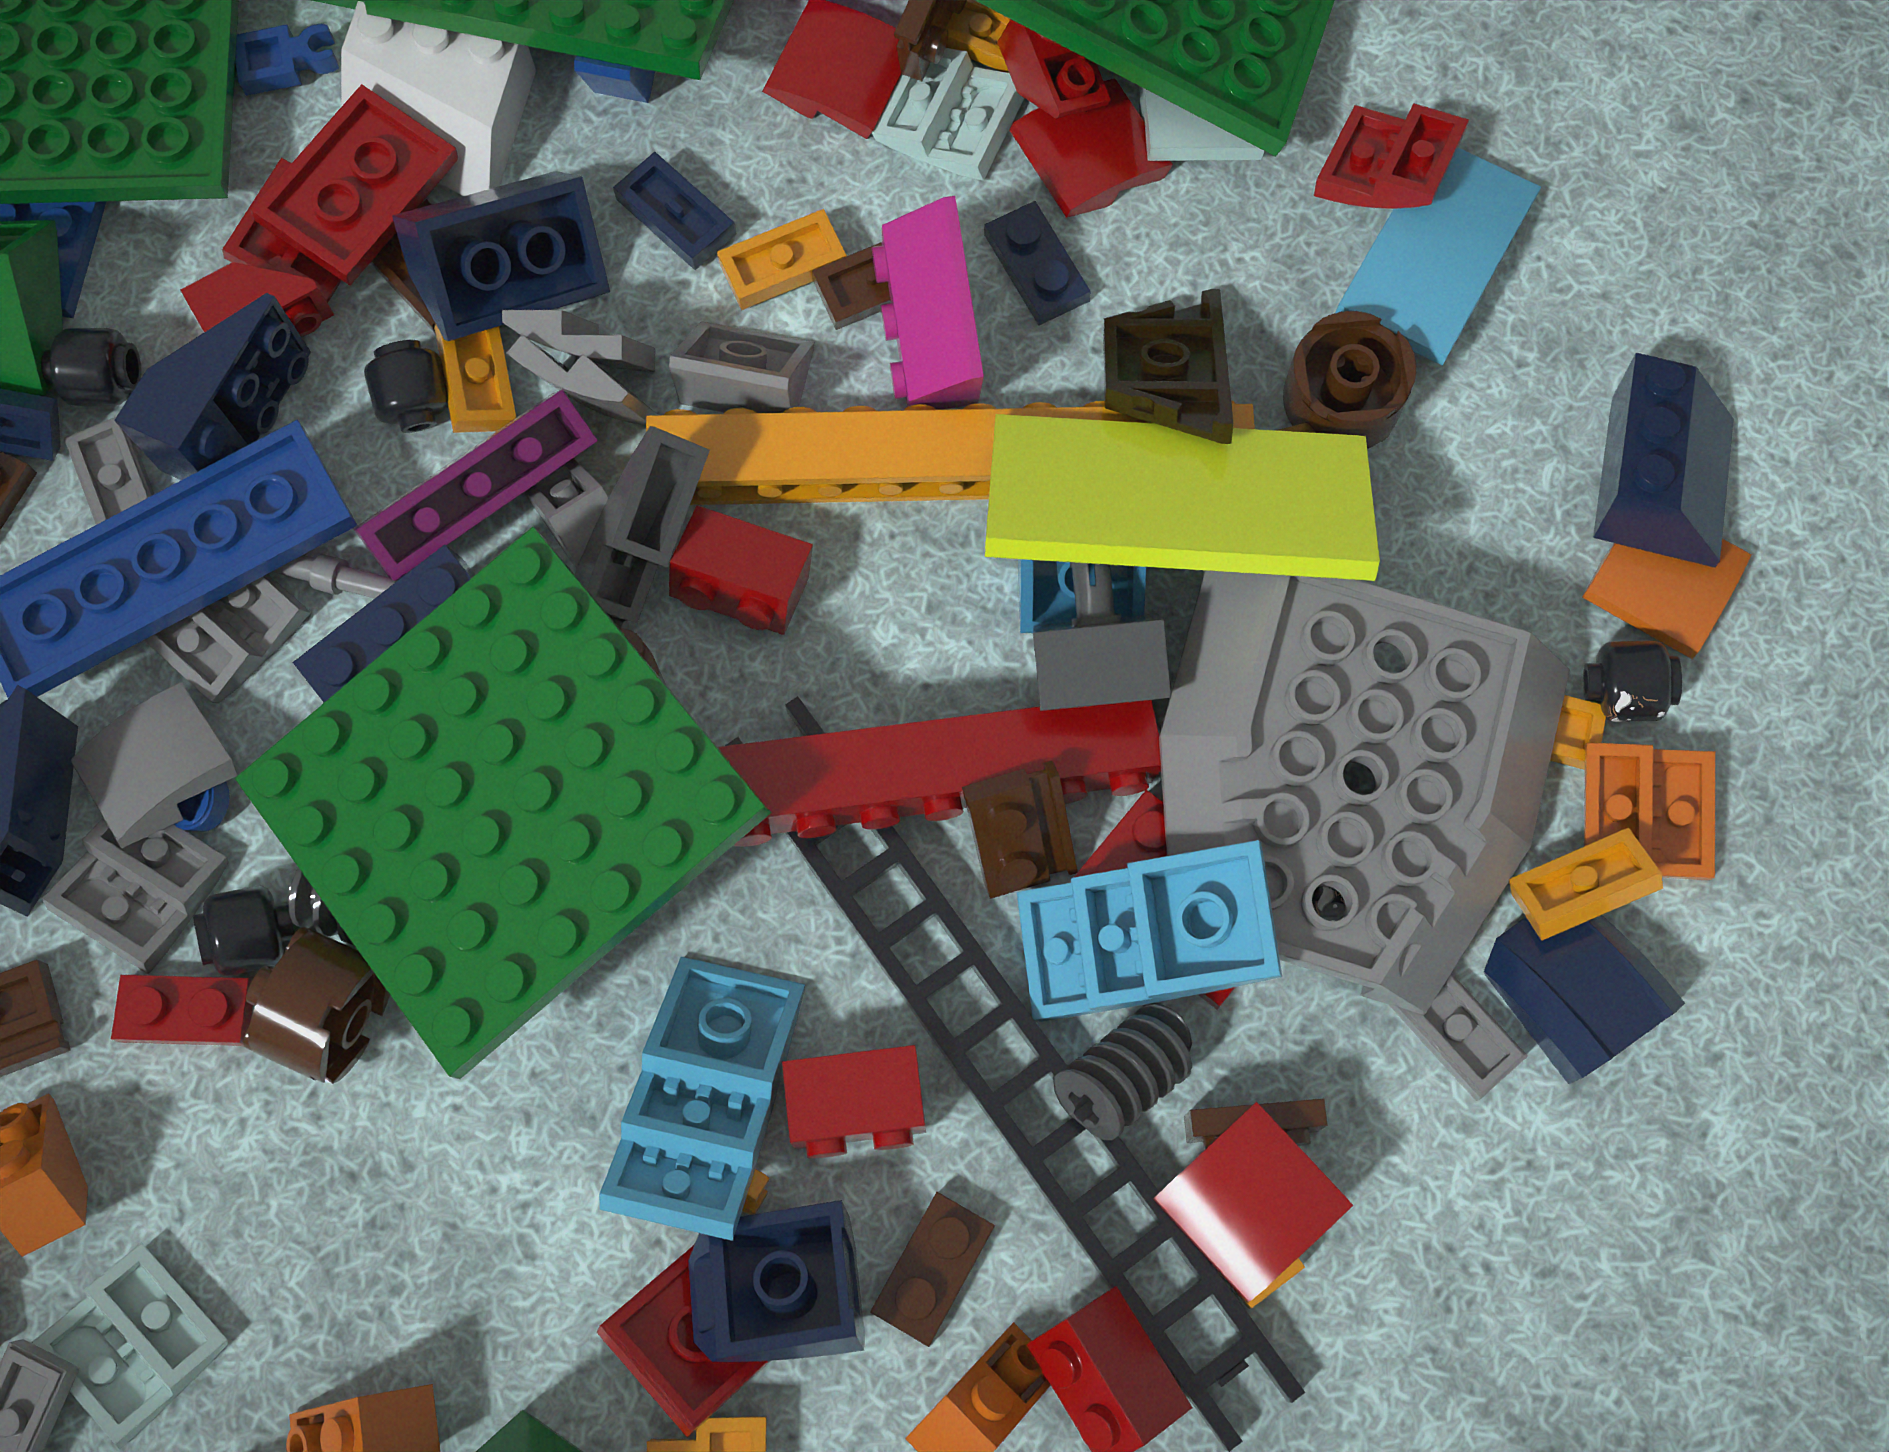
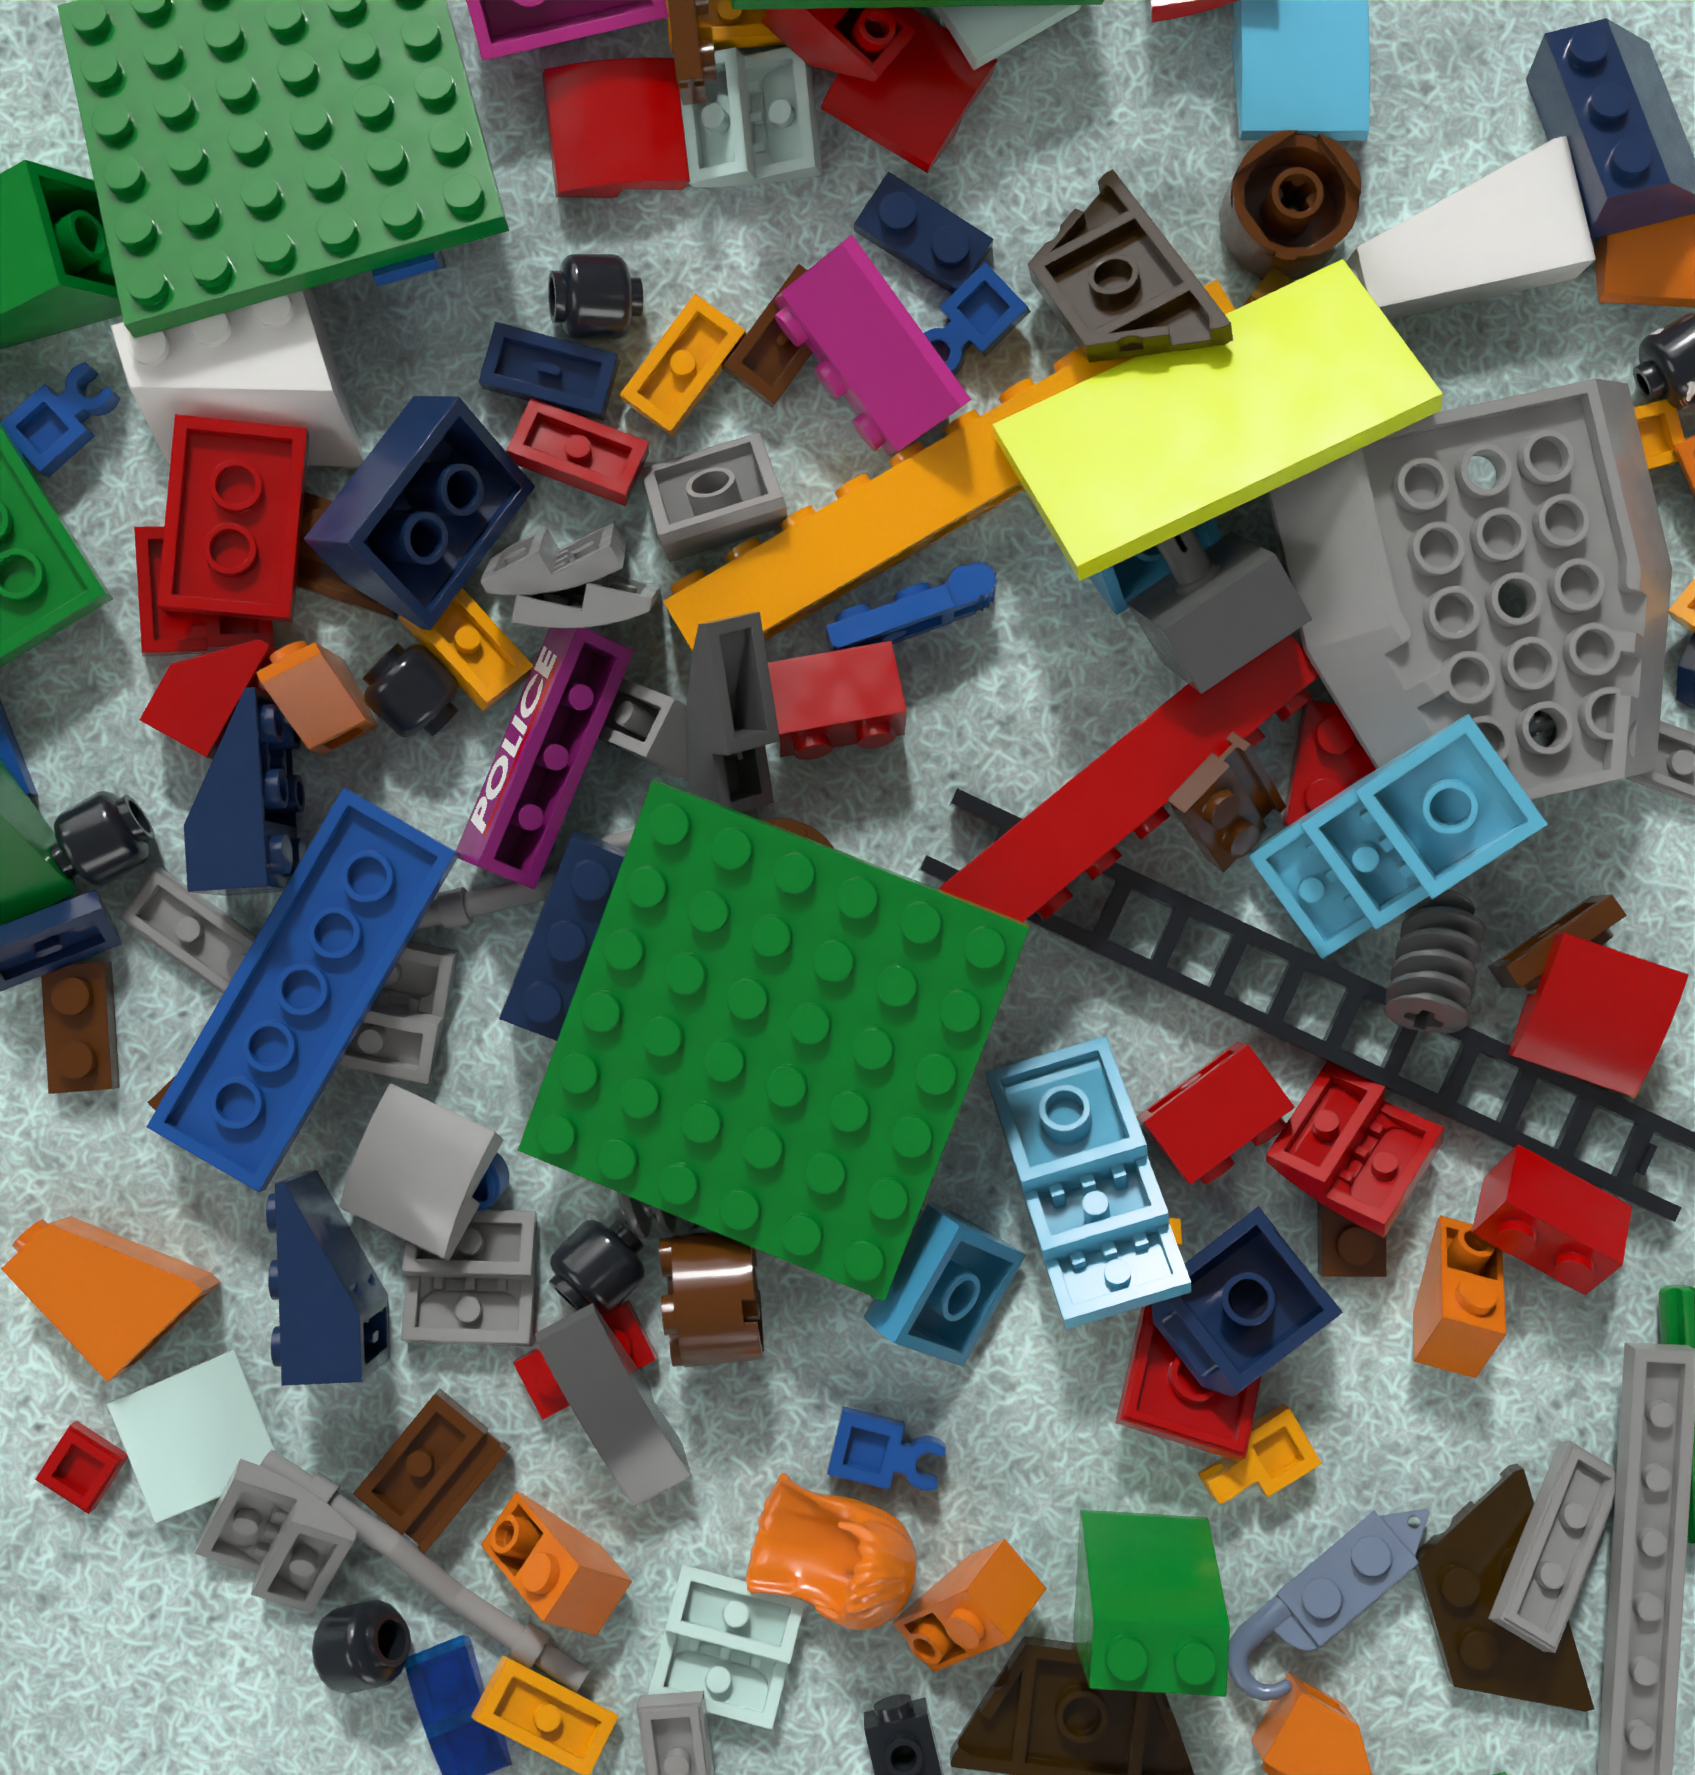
camera: 30 degrees left, 15 degrees up
(173, 1053) = (614, 1404): none -> dark grey slope
(273, 1309) = (833, 1555): none -> orange piece
(327, 344) = (317, 696): none -> orange slope
(371, 1236) = (872, 1448): none -> blue plate
(523, 1116) = (945, 1286): none -> dark azure brick
(658, 279) = (578, 451): none -> red plate
(743, 172) = (594, 296): none -> black head
(856, 538) = (915, 610): none -> blue hinge
(962, 1204) = (1355, 1149): none -> red slope
(1044, 342) = (979, 315): none -> blue plate
(1497, 494) = (1485, 241): none -> white slope

